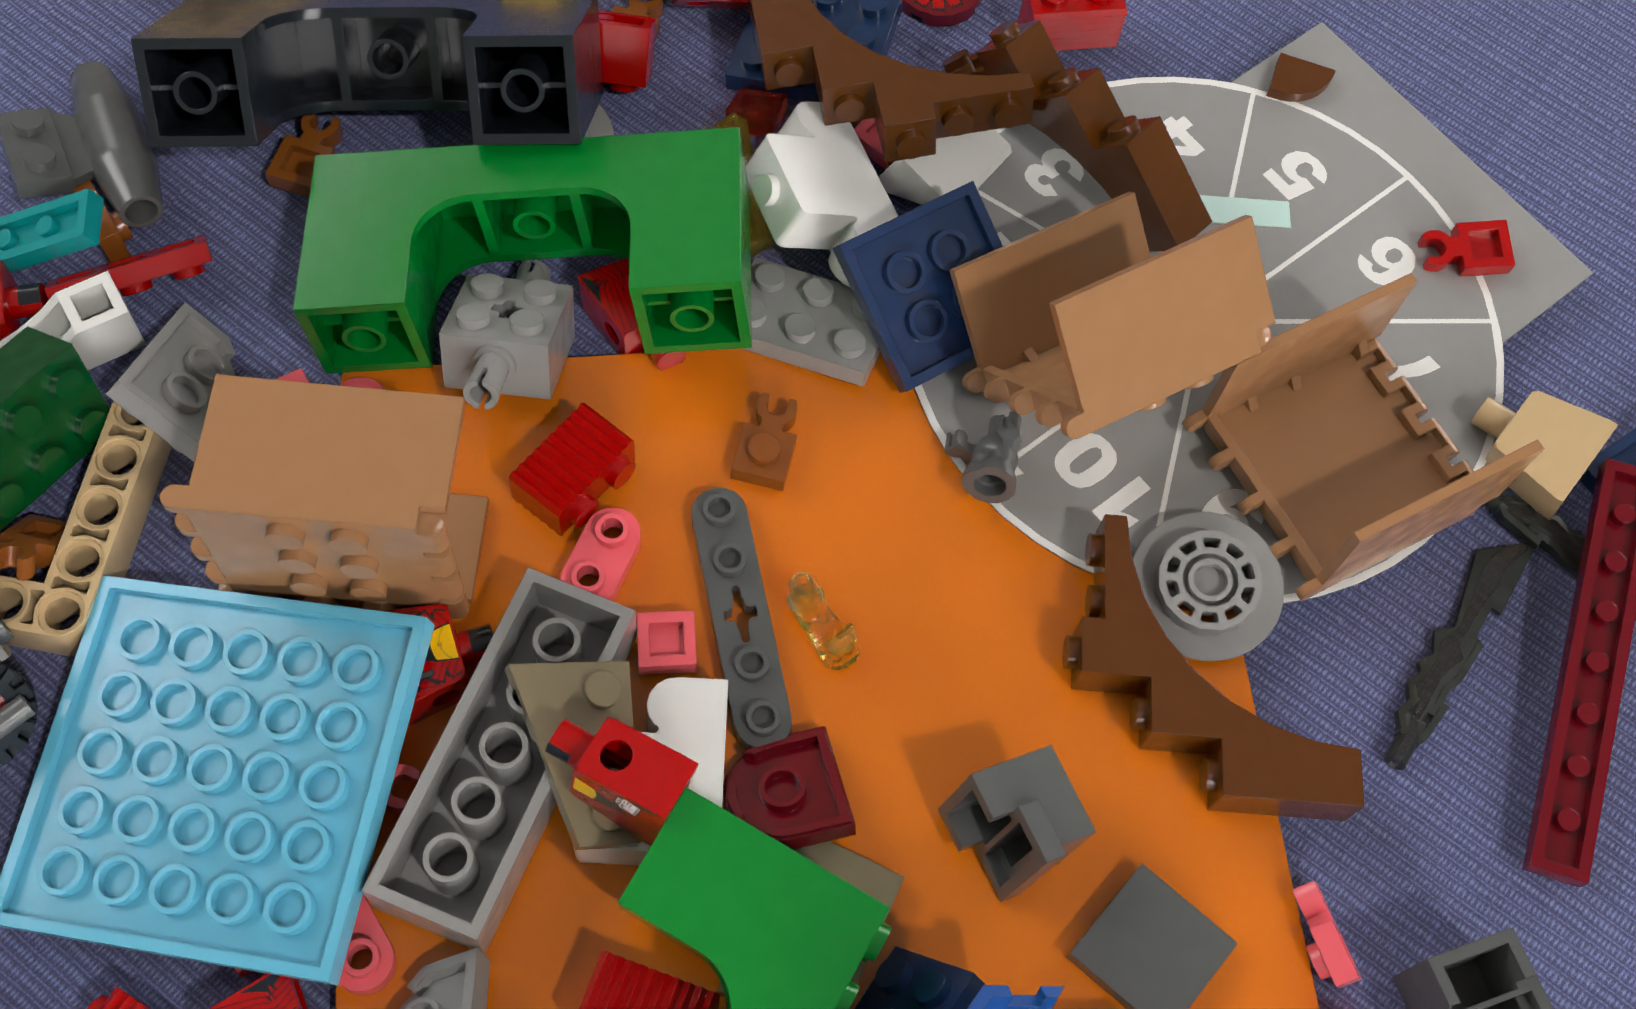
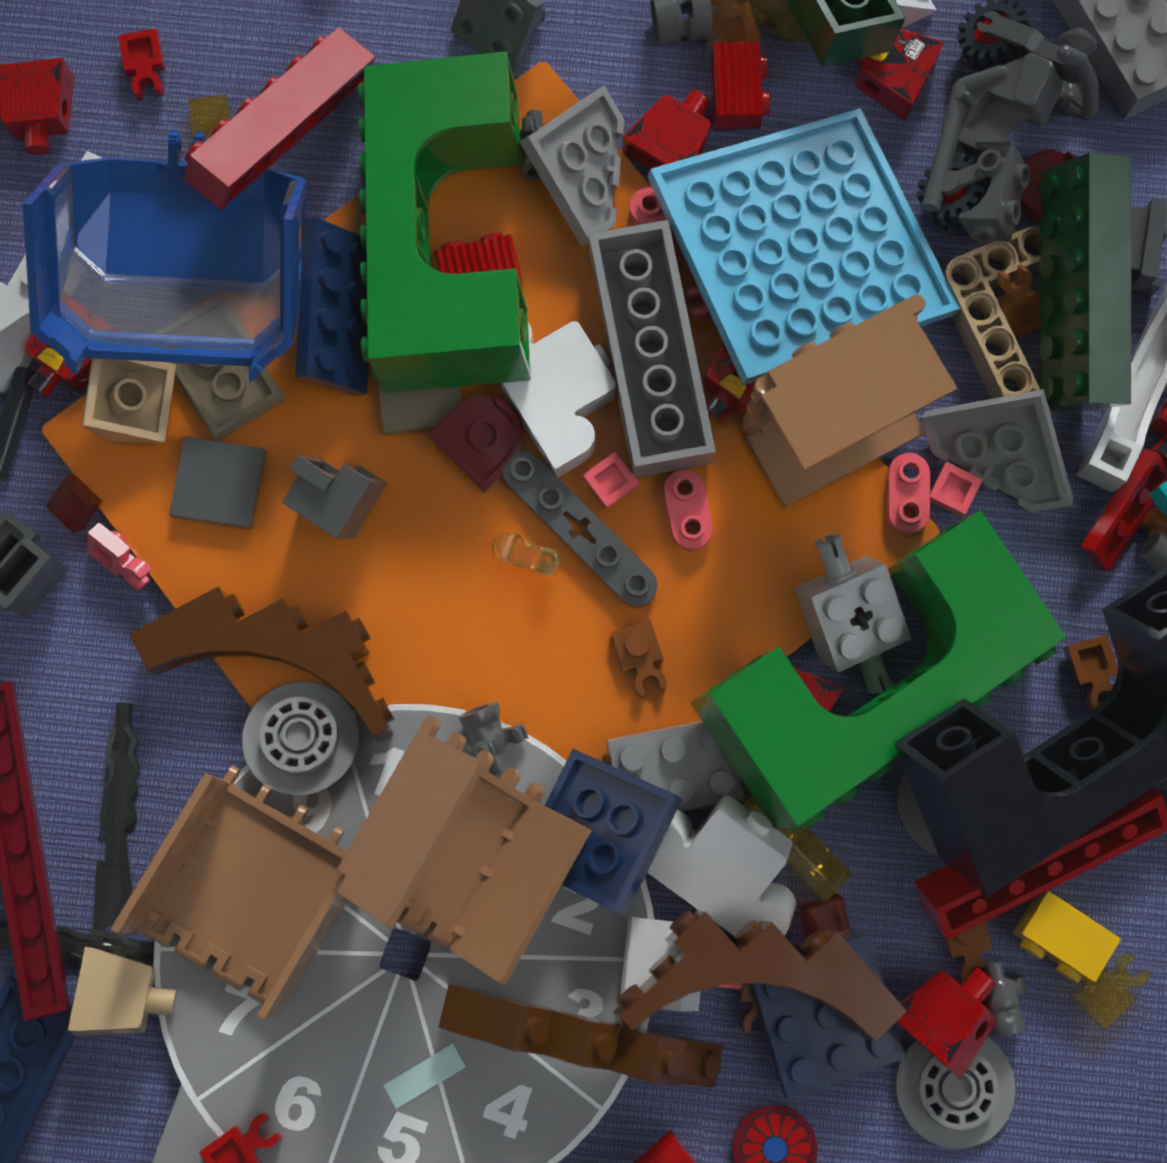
camera: 155 degrees right, 15 degrees up
(573, 470) = (744, 551): red brick -> none
(586, 696) = (605, 368): dark tan wing -> none
(646, 781) = (545, 341): red torso -> none

